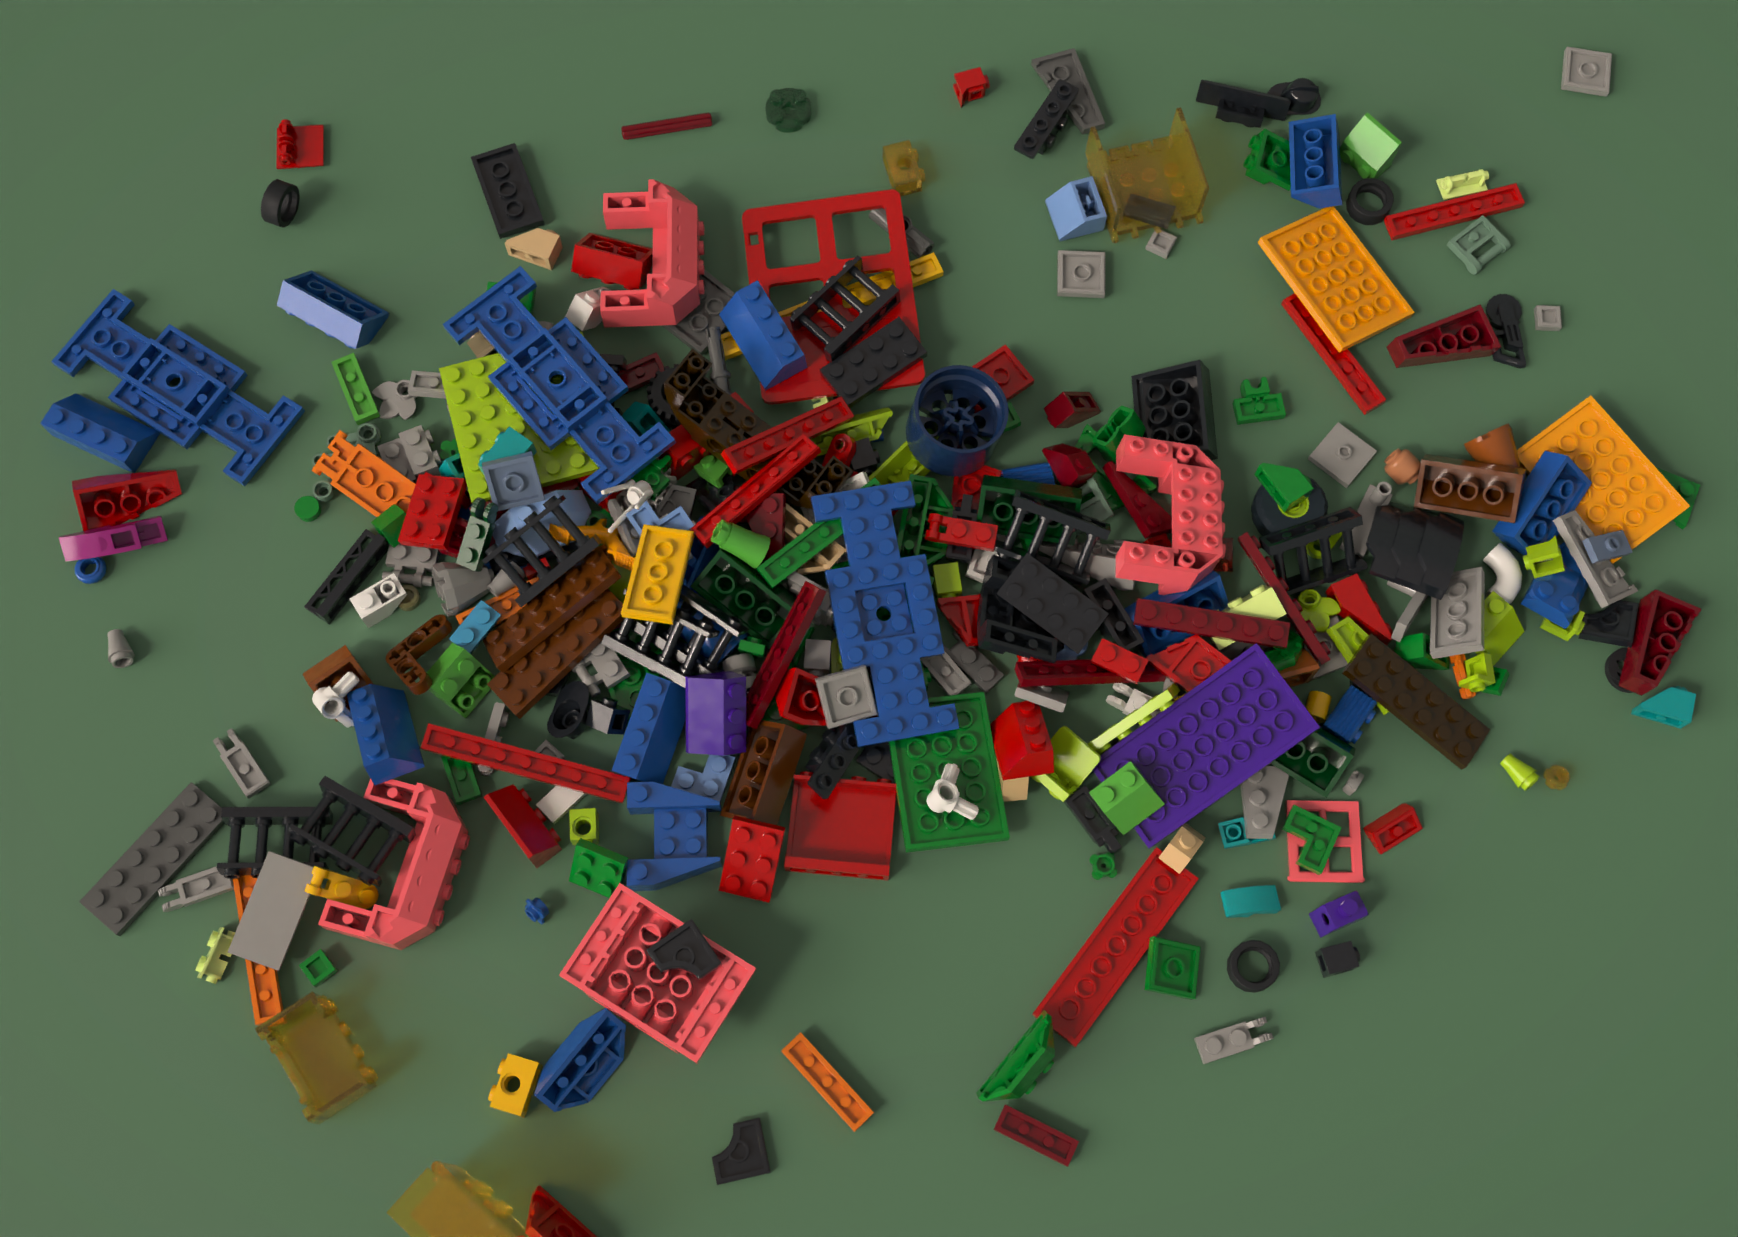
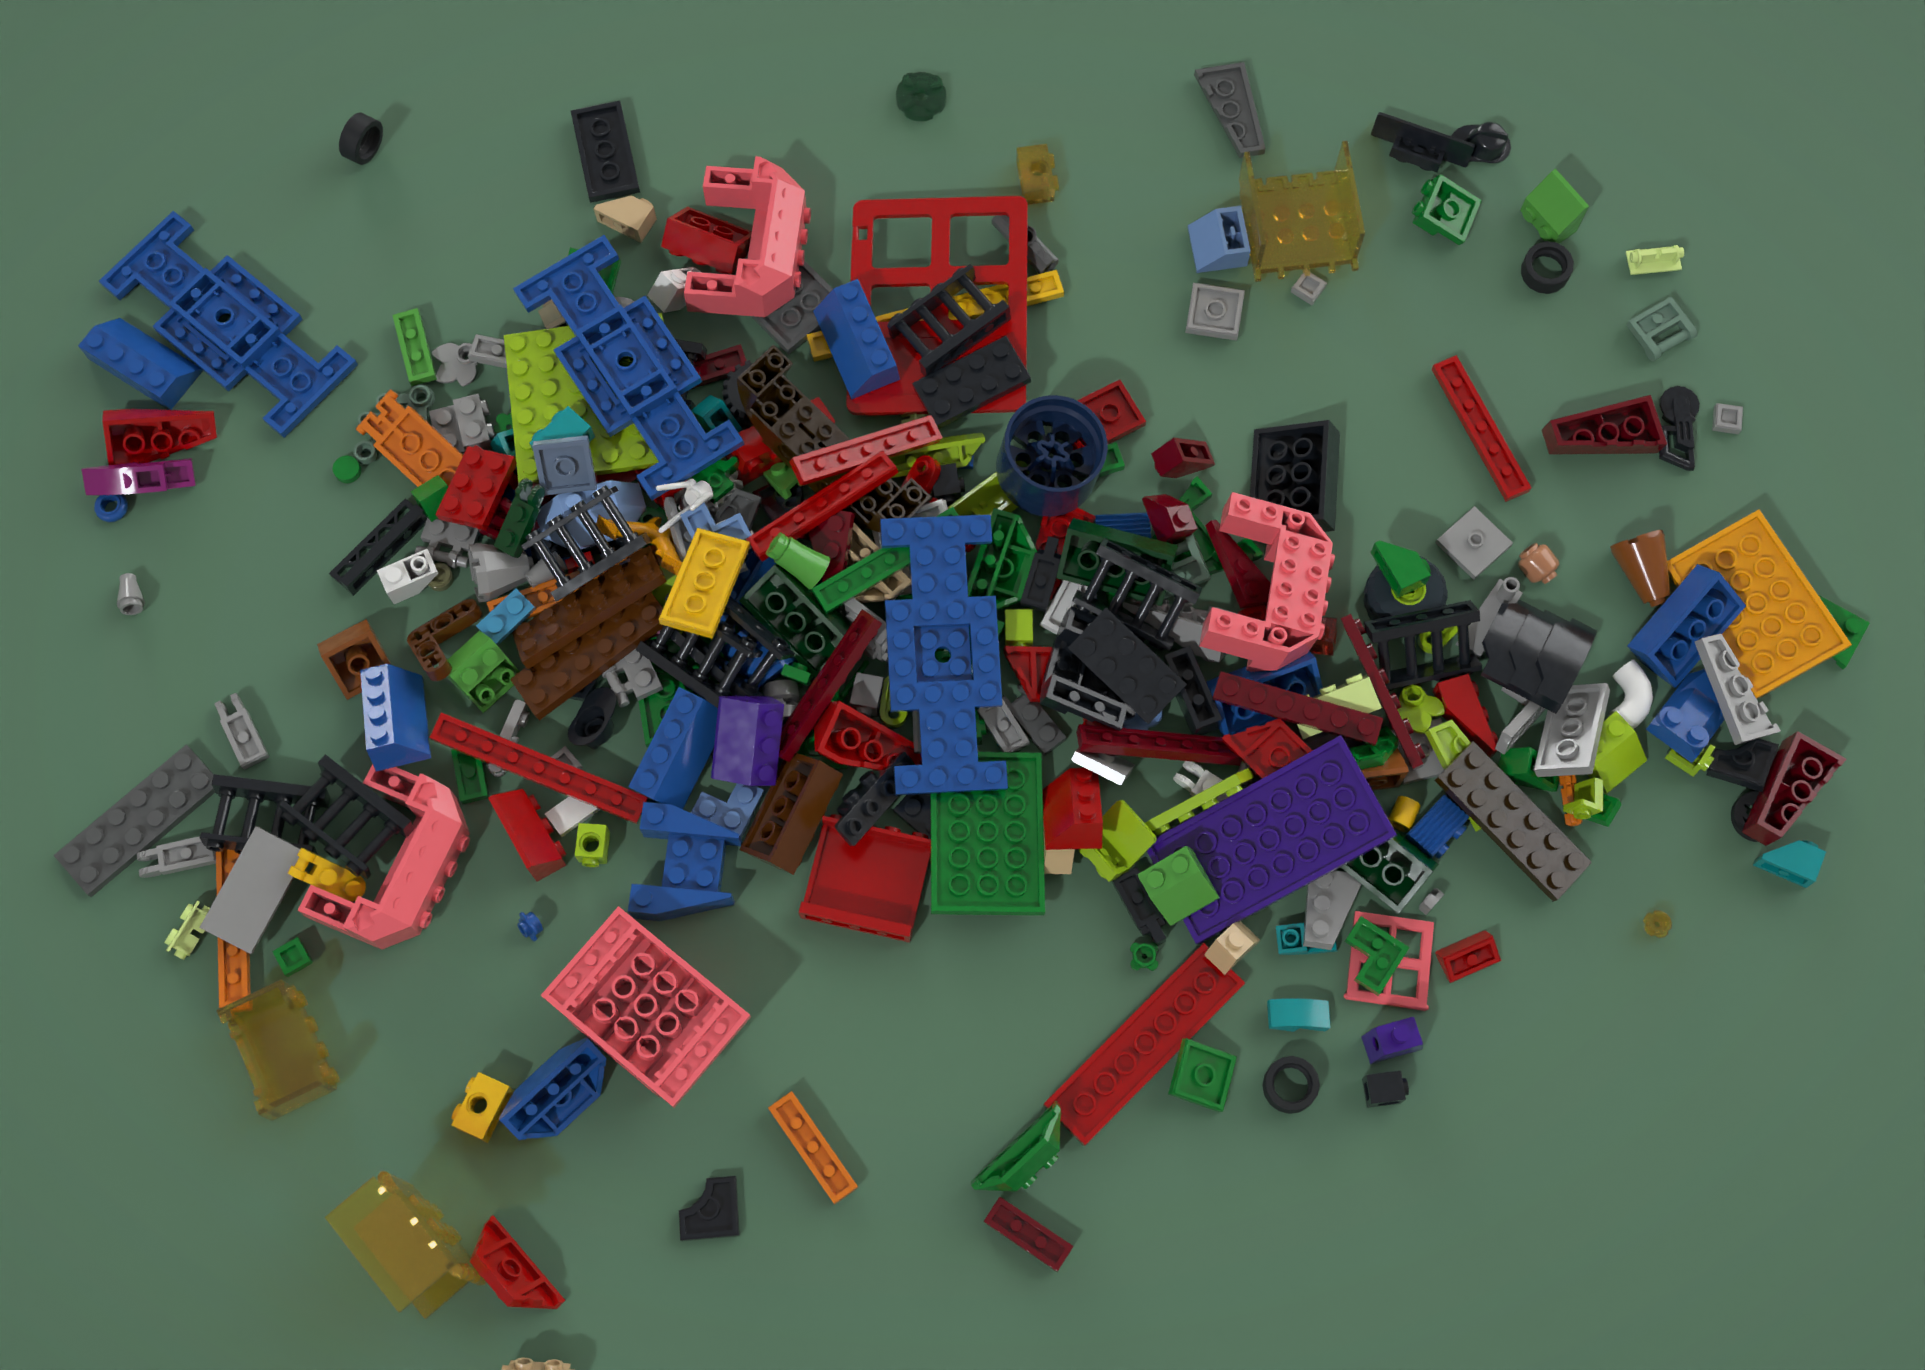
camera: 10 degrees right, 0 degrees up
(299, 145) = (390, 78): red hinge -> none
(331, 309) = (400, 258): blue slope -> none
(336, 707) = (348, 685): white axle -> none
(597, 868) = (599, 888): green plate -> none
(607, 716) = (632, 729): black brick -> none
(666, 126) = (786, 99): dark red axle -> none
(685, 950) = (677, 986): black tile -> none
(720, 374) = (805, 377): dark grey pin -> none
(752, 858) = (765, 900): red plate -> none
(846, 696) = (889, 738): light grey plate -> none
(950, 800) = (985, 853): white axle -> none
(962, 532) = (1041, 577): red plate -> none
(970, 85) = (1123, 90): red window -> none
(1047, 121) = (1201, 140): black bracket -> none
(1119, 661) = (1191, 737): red plate -> none
(1121, 422) = (1233, 478): green brick -> none
(1149, 211) = (1299, 250): clear smoke tile -> none
(1230, 1040) = (1254, 1161): light grey hinge -> none
(1258, 404) = (1388, 476): green plate -> none
(1315, 161) = (1492, 216): blue slope -> none
(1336, 278) = (1495, 347): light orange plate -> none
(1453, 211) = (1639, 289): red plate -> none
(1469, 488) = (1608, 595): reddish brown slope -> none
(1520, 772) = (1618, 914): lime cone -> none
(1544, 558) = (1679, 682): lime window -> none
(1586, 71) = (1814, 149): light grey plate -> none
(1607, 546) = (1751, 678): sand blue plate -> none

